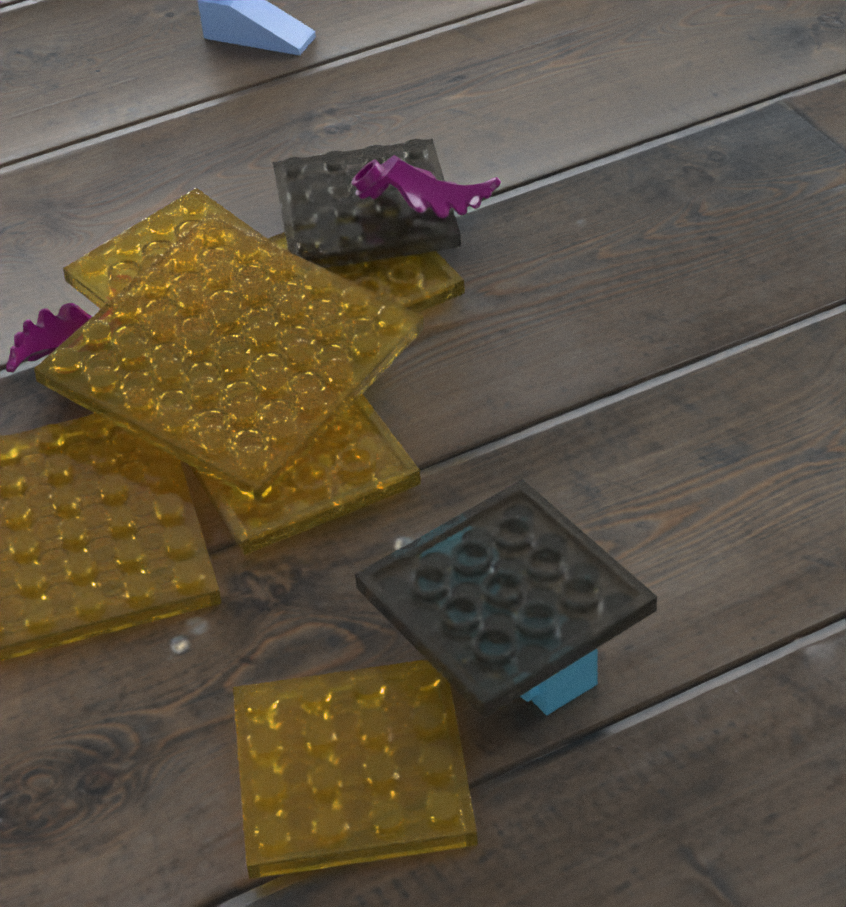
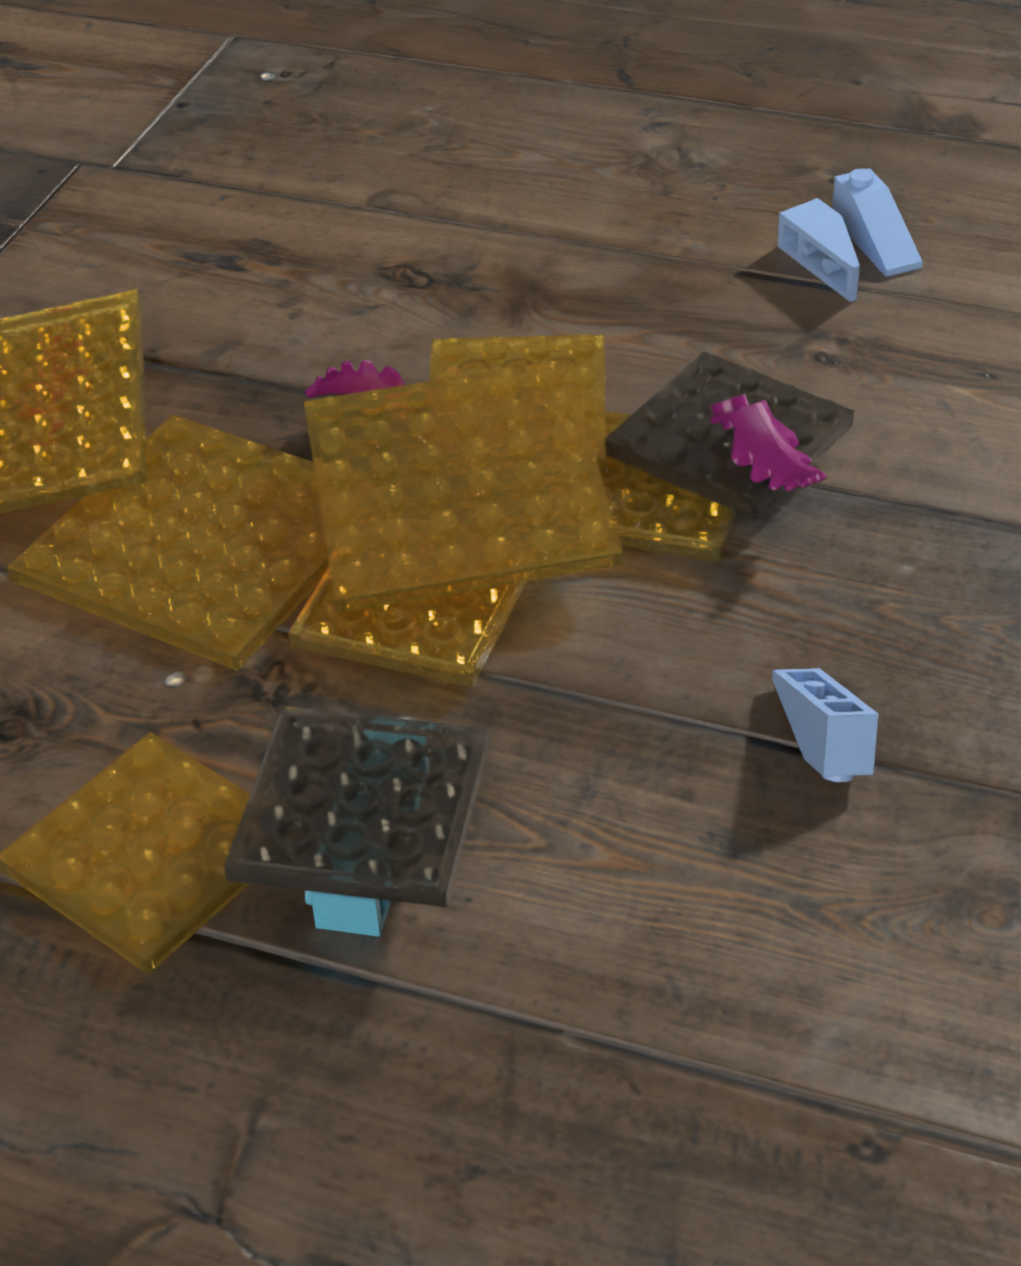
camera: 45 degrees right, 0 degrees up
(242, 55) = (821, 244): none -> light blue slope
(688, 335) = (828, 722): none -> light blue slope

